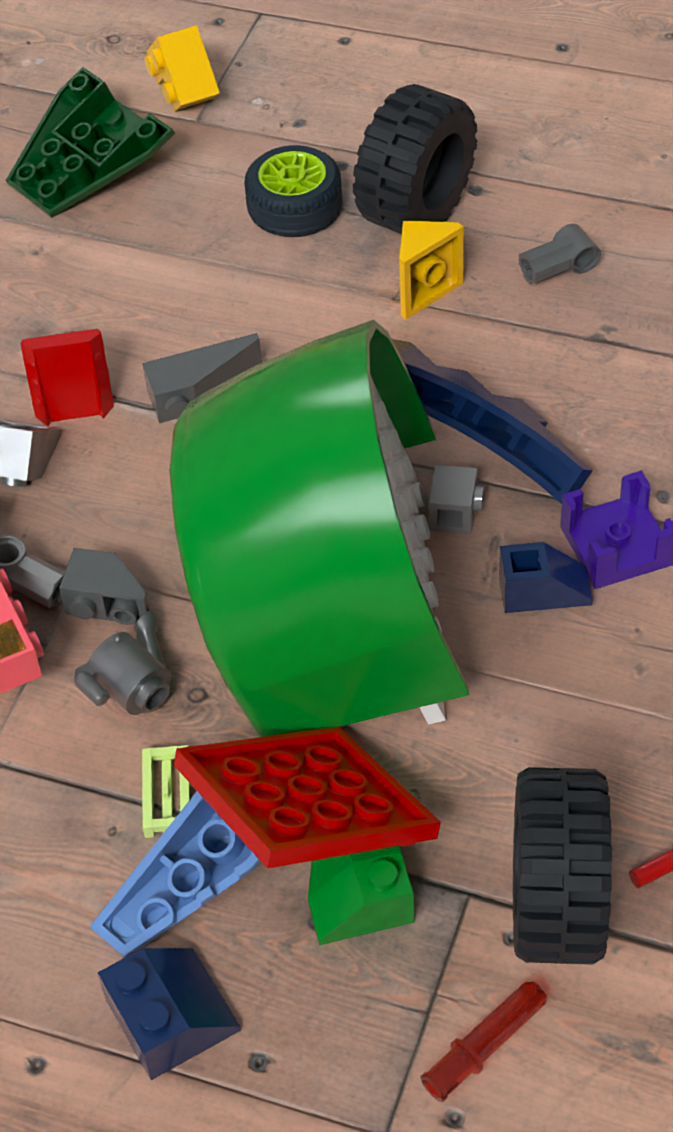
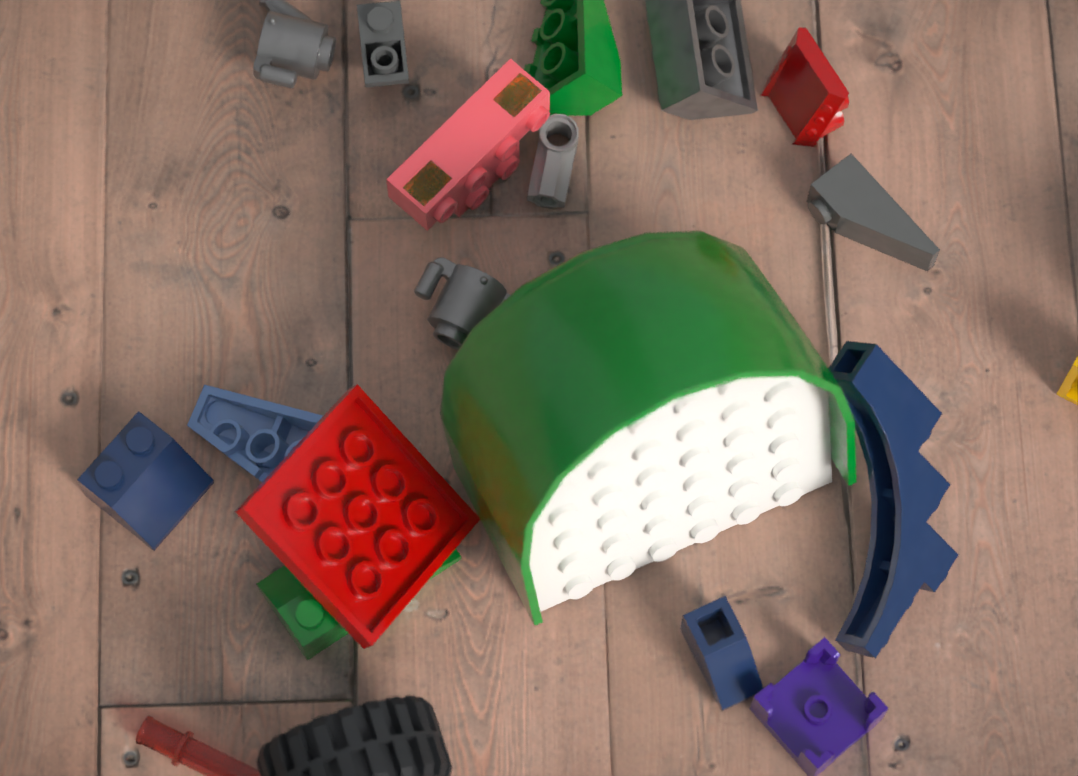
camera: 65 degrees right, 20 degrees up
(101, 588) = (561, 229): dark grey slope -> none
(165, 754) = (367, 372): yellowish green tile -> none
(454, 499) = (802, 530): light grey brick -> none

